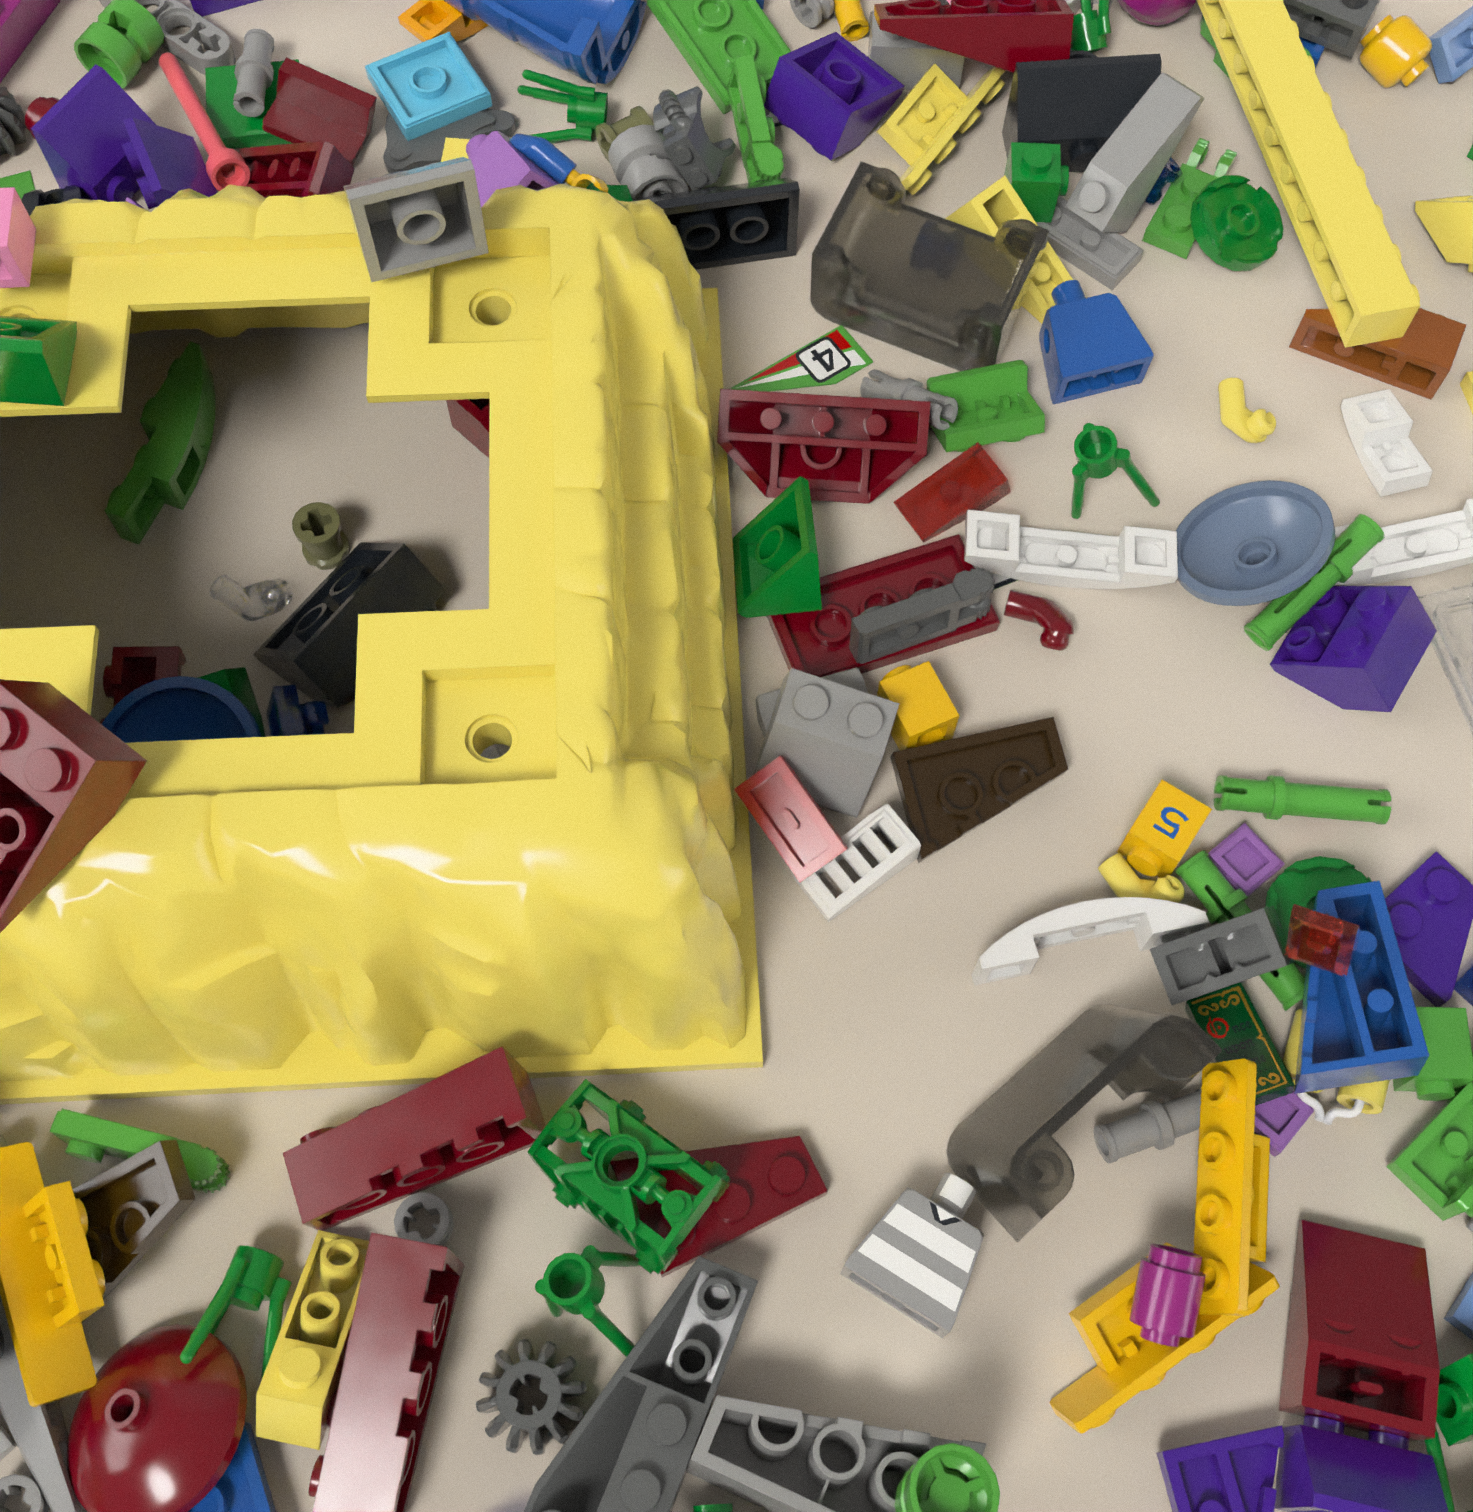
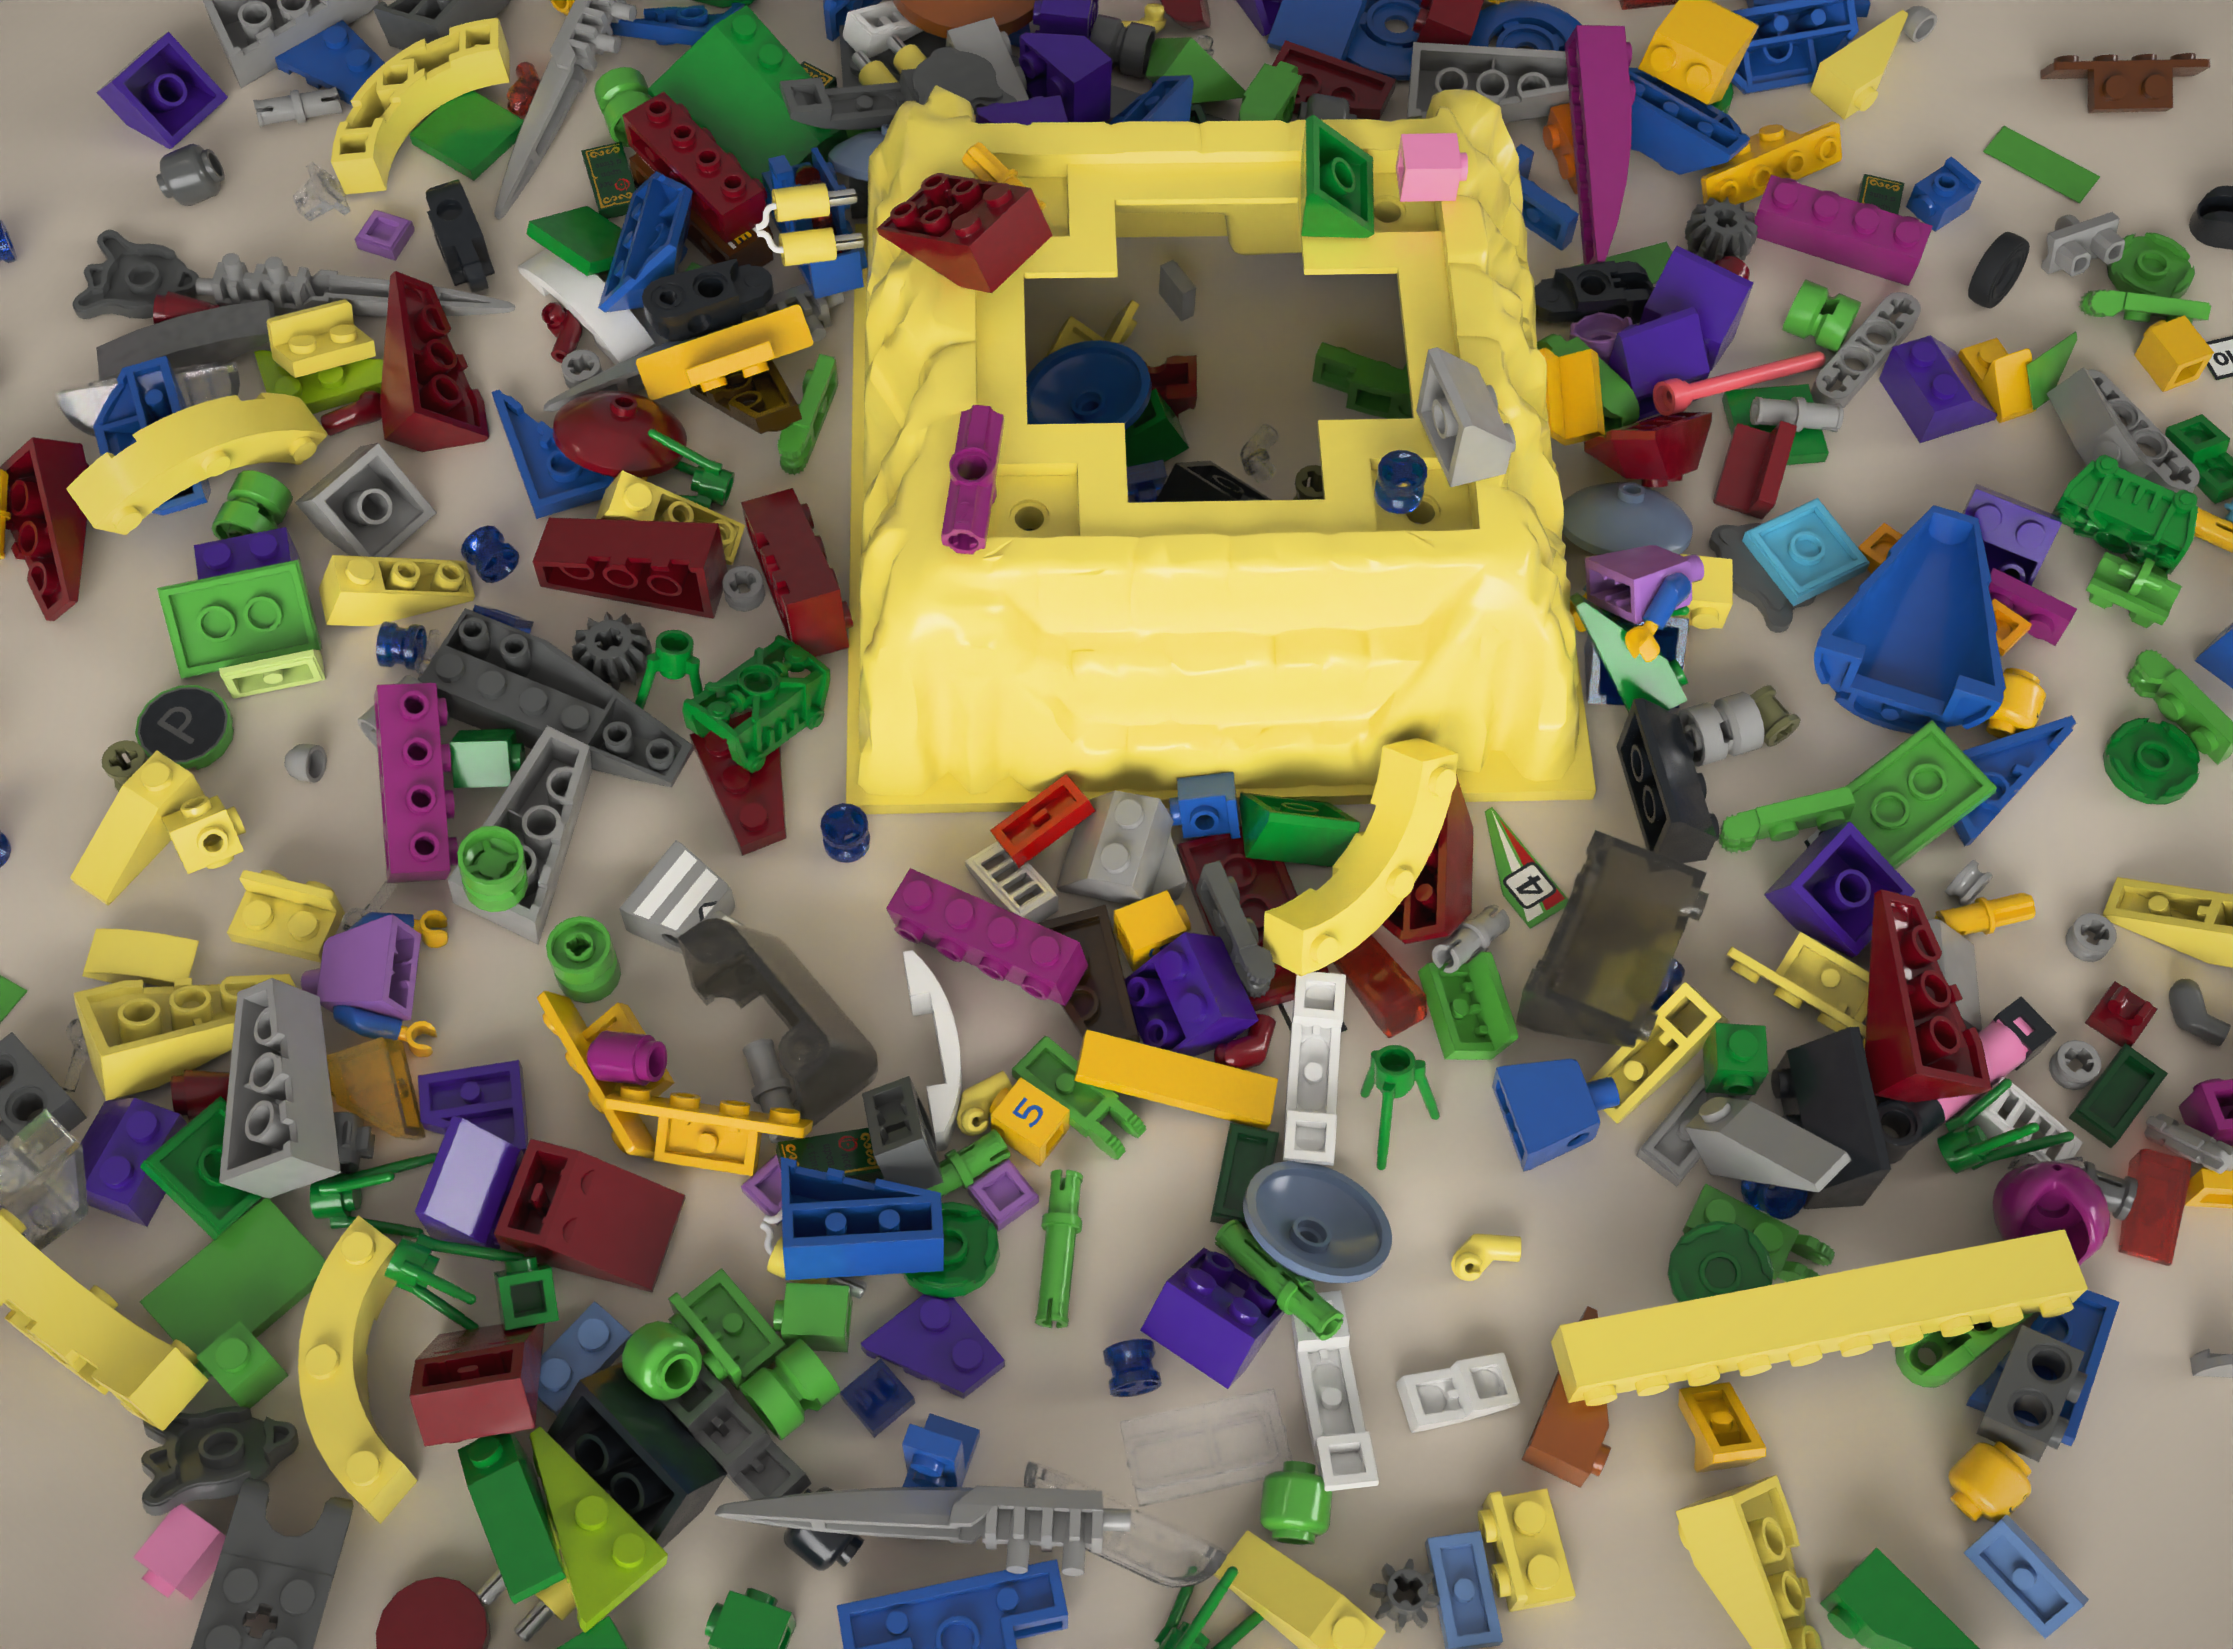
camera: 90 degrees right, 5 degrees down
(435, 768) = (971, 500): none -> magenta piece
(500, 278) = (1393, 471): none -> clear blue wheel
(584, 108) = (1798, 683): green plant -> none
(687, 140) = (1736, 747): dark grey piece -> none
(759, 644) = (1206, 806): none -> blue brick
(804, 1046) = (840, 822): none -> clear blue wheel
(849, 468) = (1376, 866): none -> light yellow brick
(951, 876) = (987, 937): none -> magenta brick
(1001, 667) = (1189, 997): none -> dark purple slope
(1017, 1377) = (583, 959): none -> bright green wheel
(1098, 684) = (1176, 1079): none -> yellow tile
(1118, 789) = (1054, 1072): none -> bright green hinge
(1187, 624) = (1245, 1154): none -> dark green tile
(1321, 940) = (885, 1161): clear red slope -> none
(1415, 220) = (1720, 1427): none -> yellow slope
(1425, 724) = (1132, 1368): none -> clear blue wheel

